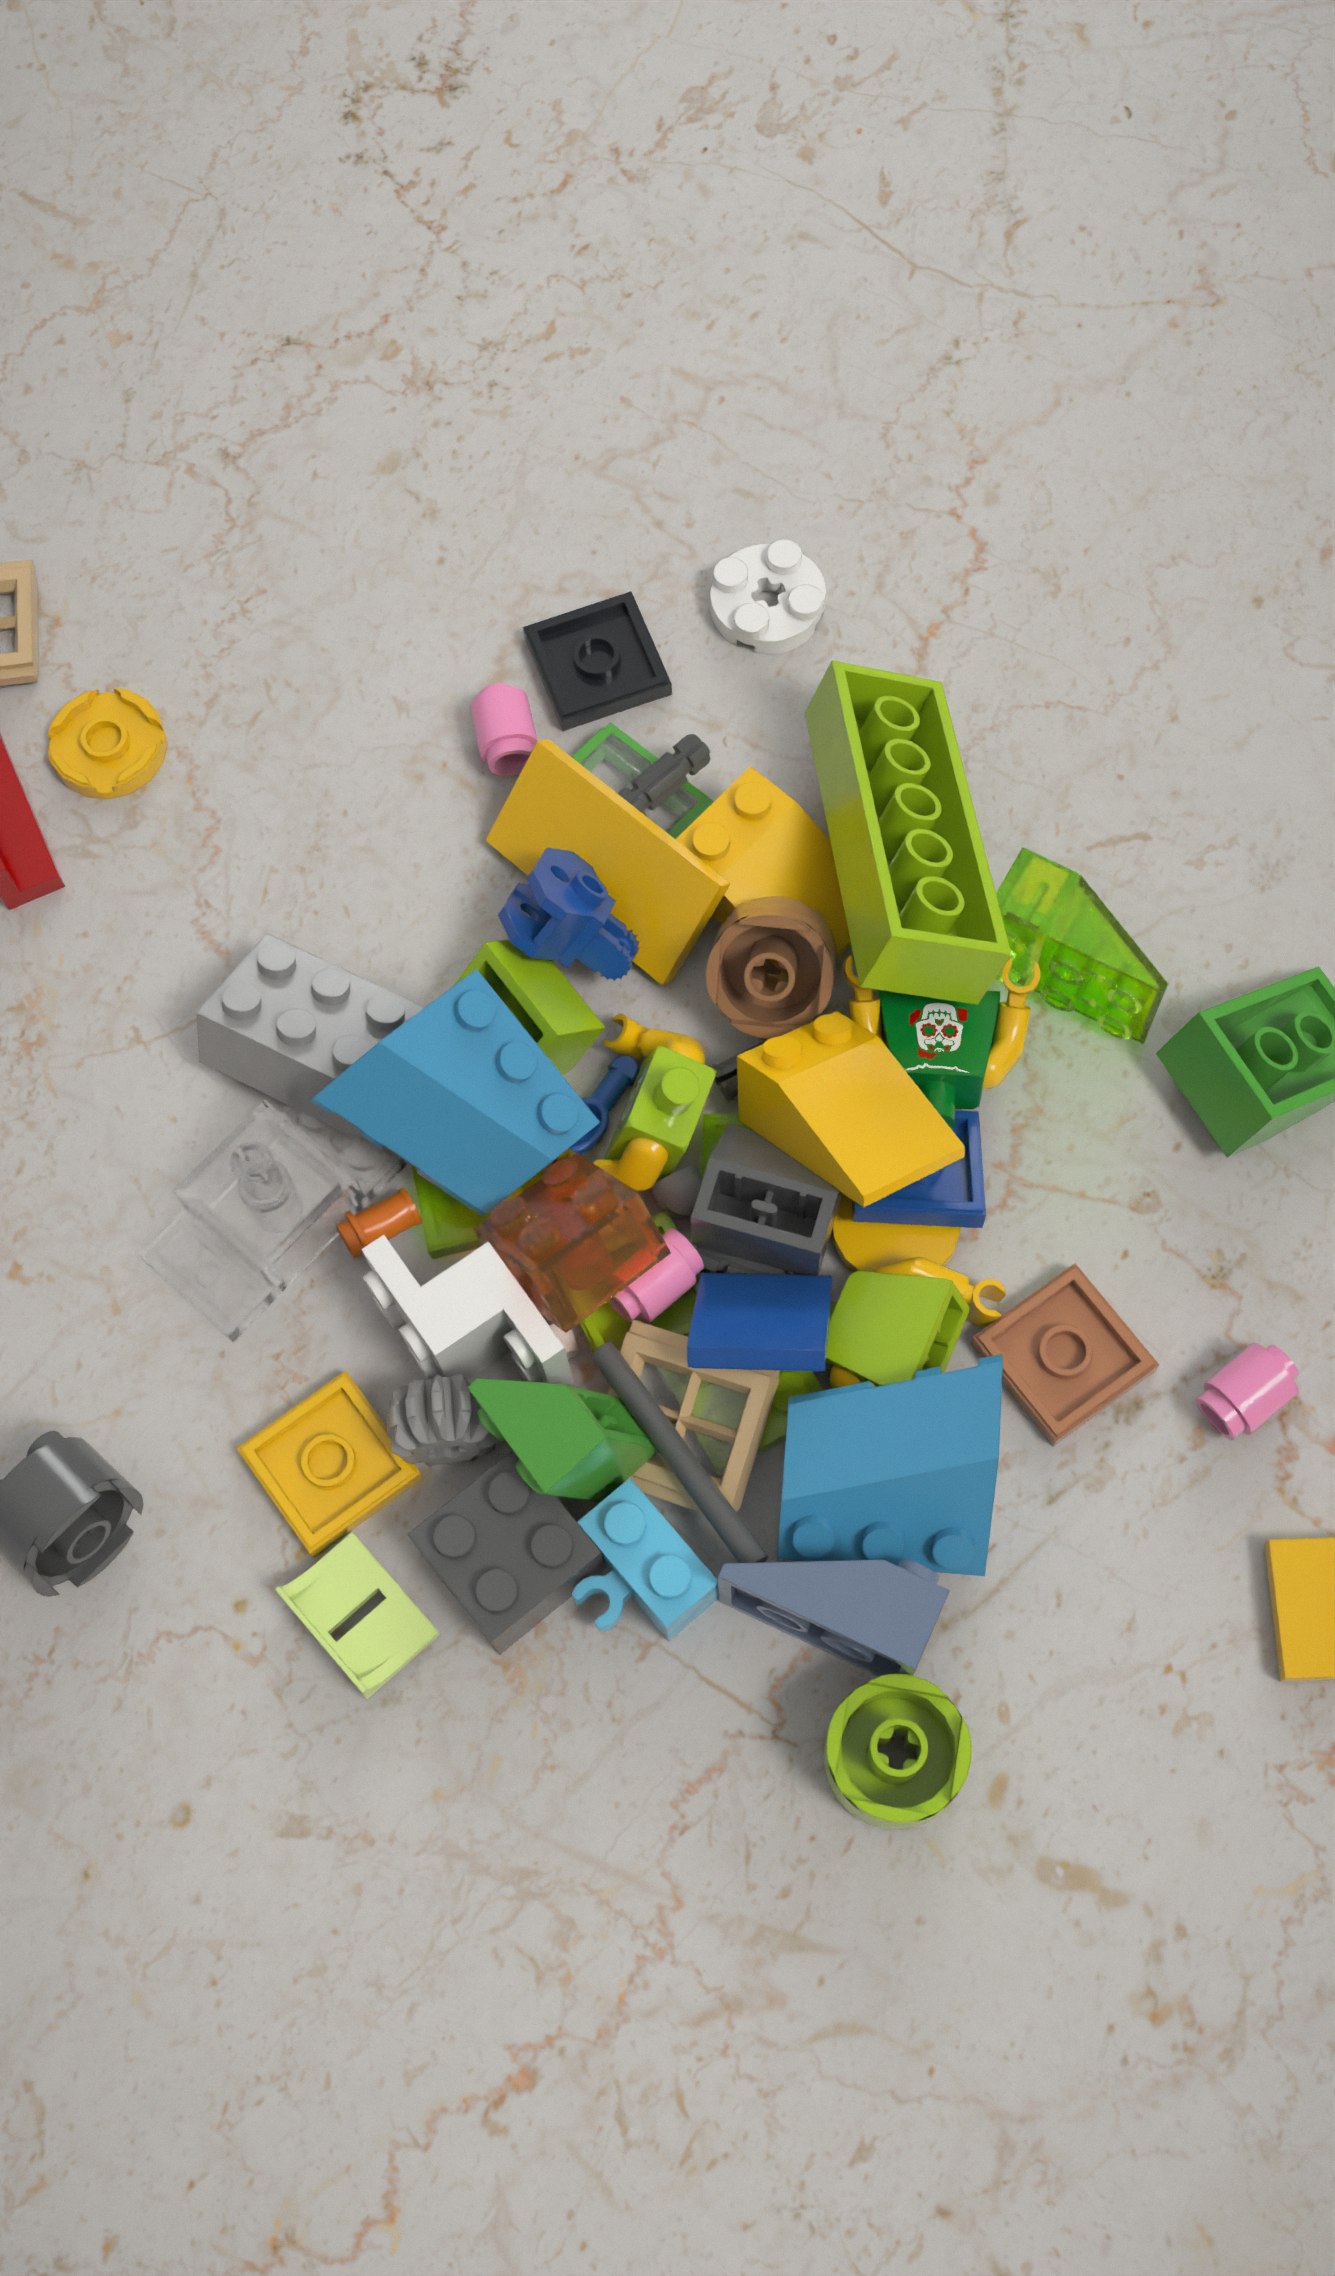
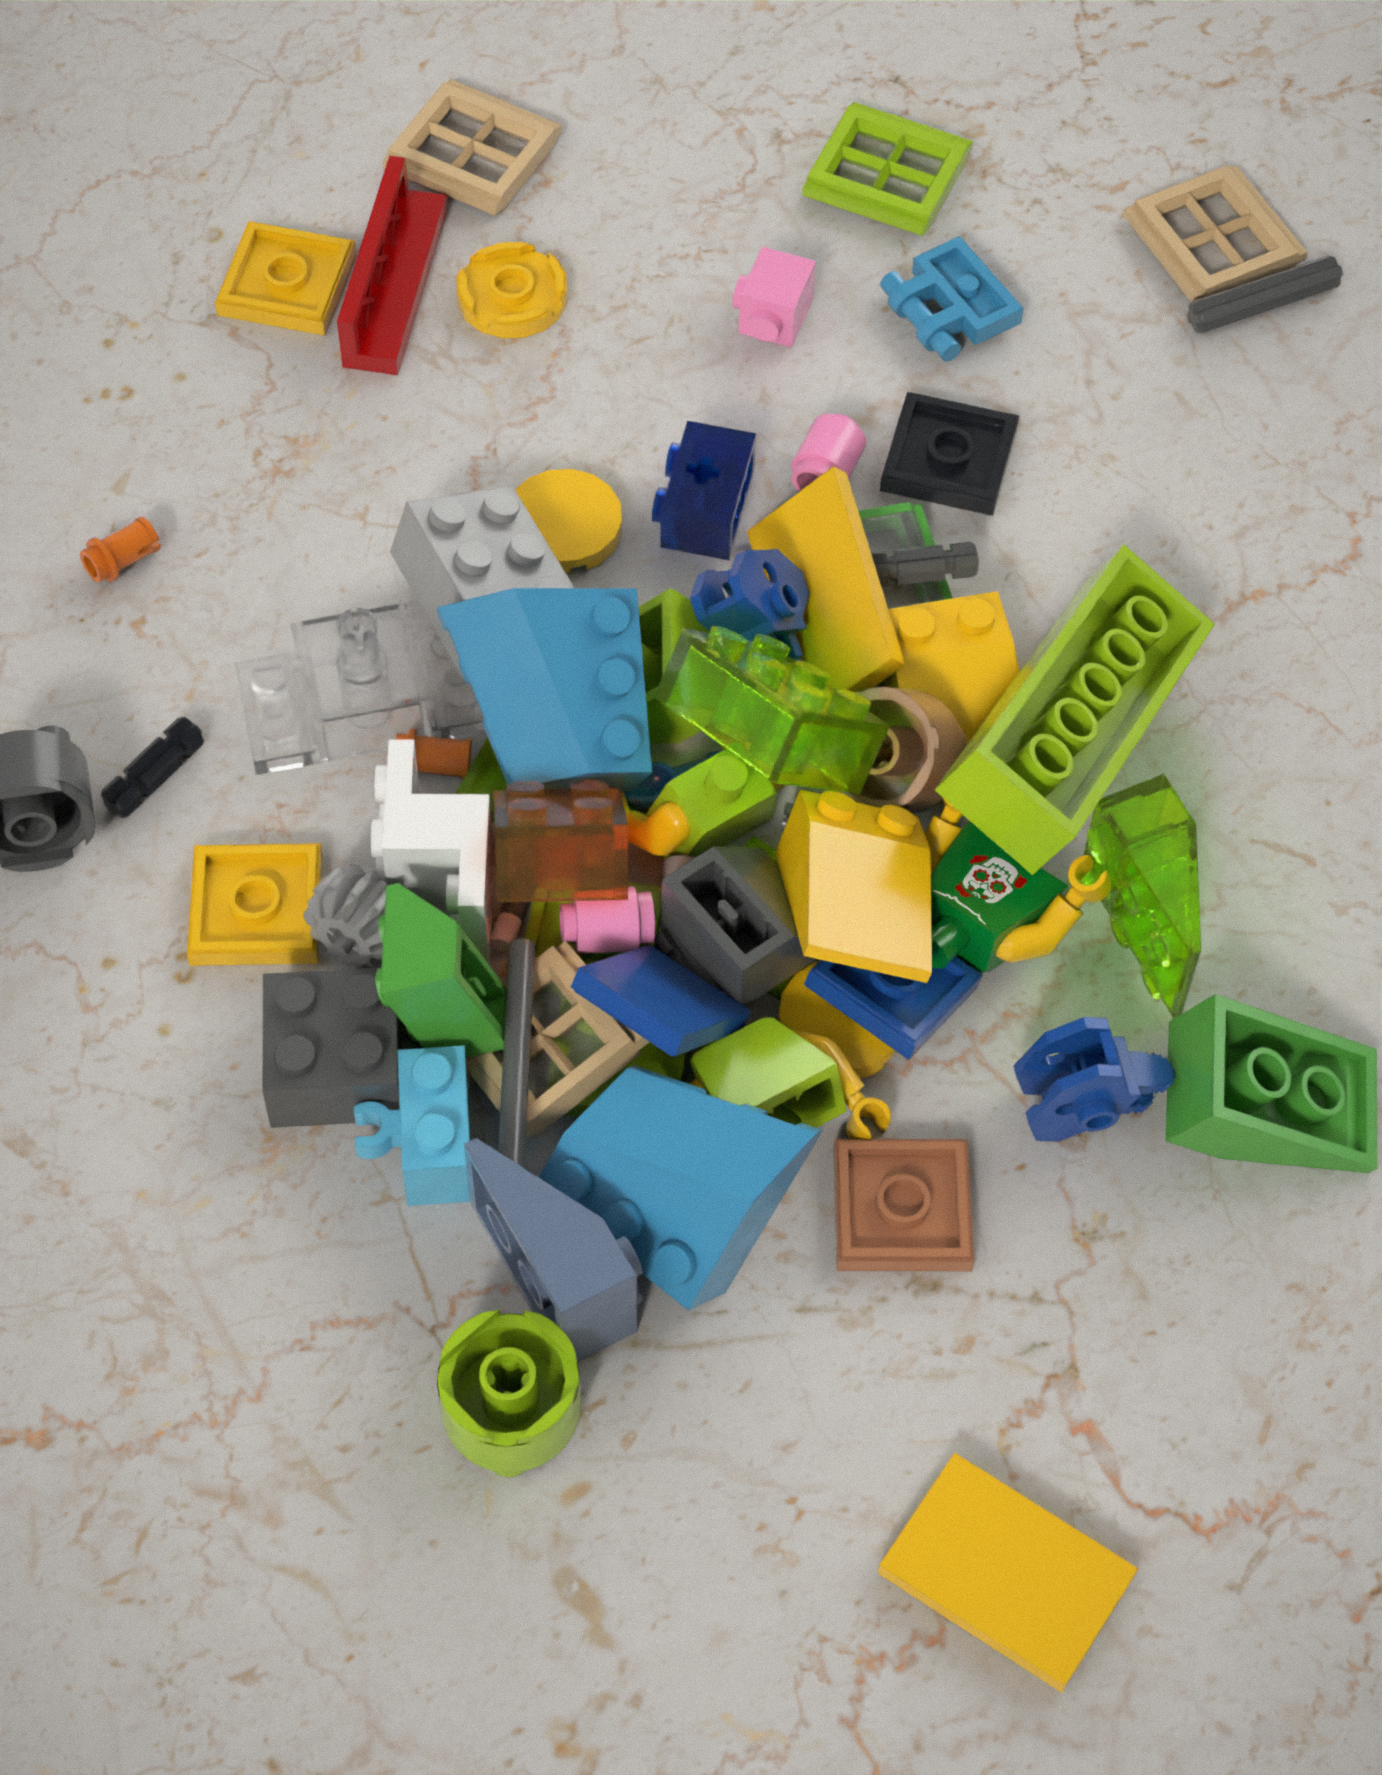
camera: 30 degrees right, 10 degrees down
(139, 1400) = (152, 767): none -> black axle
(326, 918) = (574, 514): none -> yellow tile
(336, 1590) = (183, 994): yellowish green piece -> none
(346, 609) = (775, 296): none -> bright pink brick
(347, 430) = (887, 168): none -> lime piece
(420, 795) = (705, 490): none -> clear blue brick
(501, 504) = (965, 290): none -> dark azure plate
(643, 363) = (1253, 213): none -> tan piece
(667, 1003) = (772, 710): none -> clear neon green brick
(744, 358) = (1264, 294): none -> dark grey axle
(773, 568) = (1139, 460): white plate -> none
(1141, 1149) = (1088, 1080): none -> blue hinge
(1248, 1390) = (1033, 1328): bright pink brick -> none

